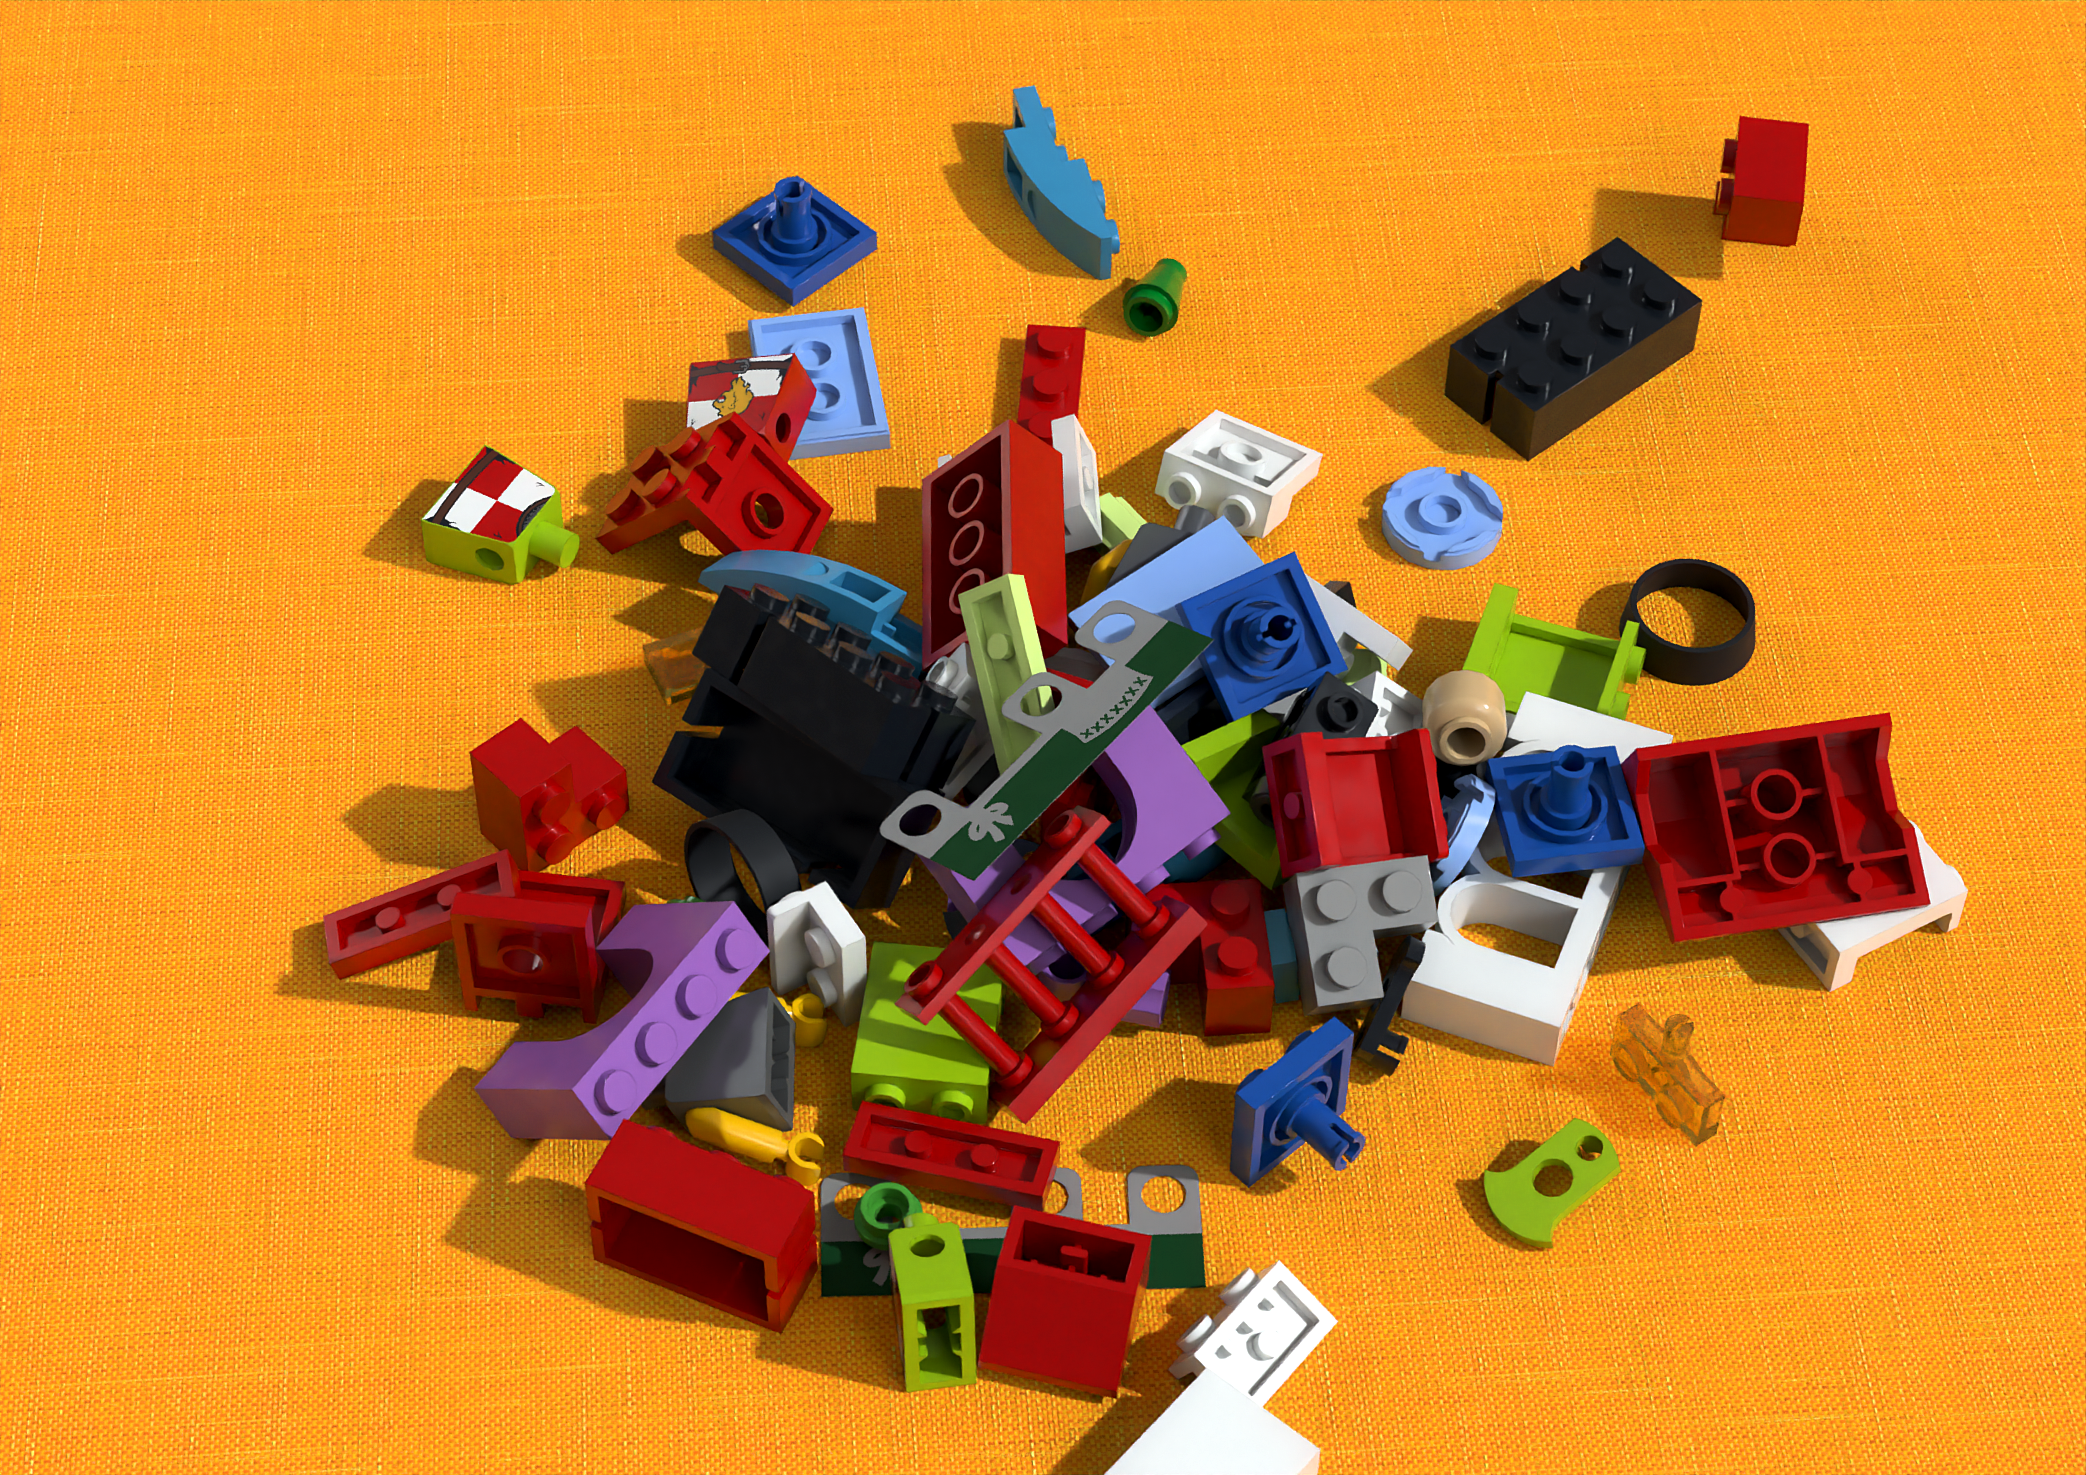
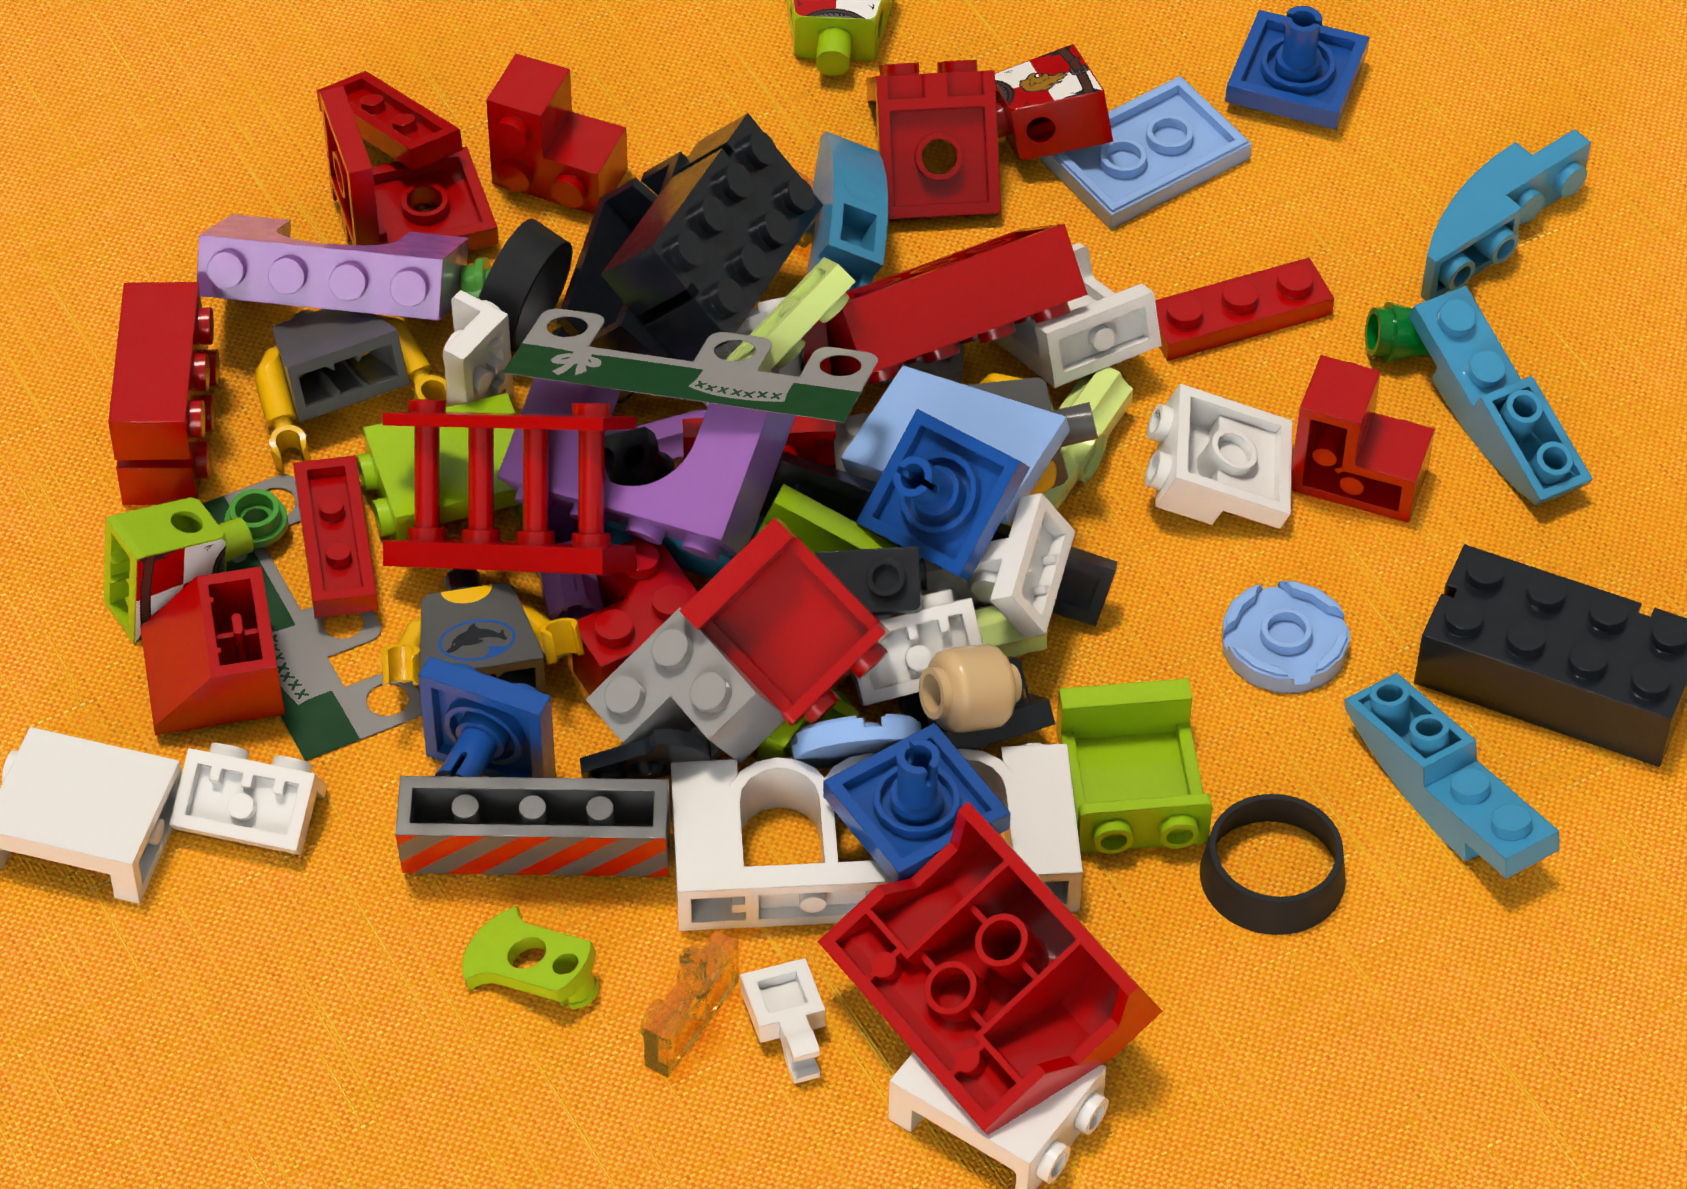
camera: 65 degrees right, 0 degrees up
(1167, 1080) = (483, 630): none -> torso
(1282, 371) = (1351, 451): none -> red brick
(1286, 279) = (1492, 403): none -> dark azure slope
(1420, 1114) = (534, 826): none -> dark grey brick
(1653, 478) = (1440, 777): none -> dark azure slope
(1711, 1009) = (787, 1007): none -> white plate

